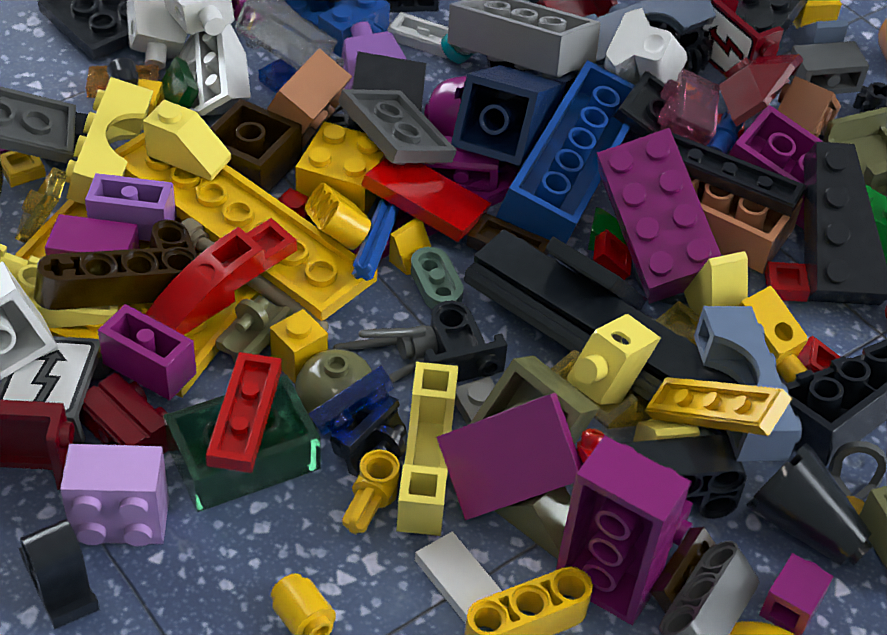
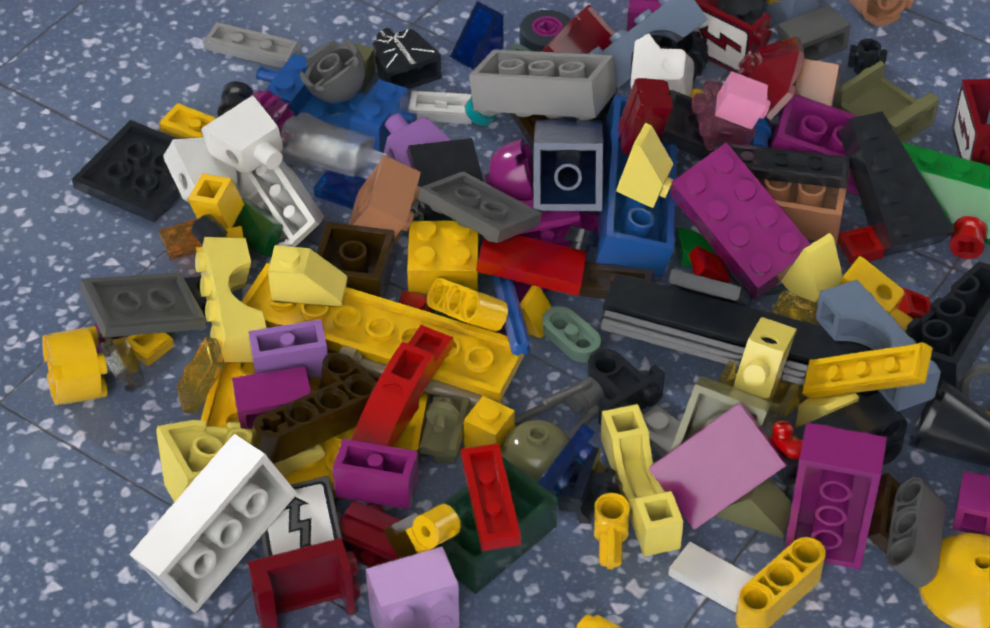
camera: 15 degrees left, 0 degrees up
(147, 49) = (216, 197): none -> yellow brick
(155, 424) = (423, 532): none -> yellow leg
(490, 188) = (581, 238): none -> black plate
(577, 132) = (646, 169): none -> light yellow slope
(600, 83) = (648, 104): none -> dark red brick
(711, 96) = (742, 100): none -> bright pink brick

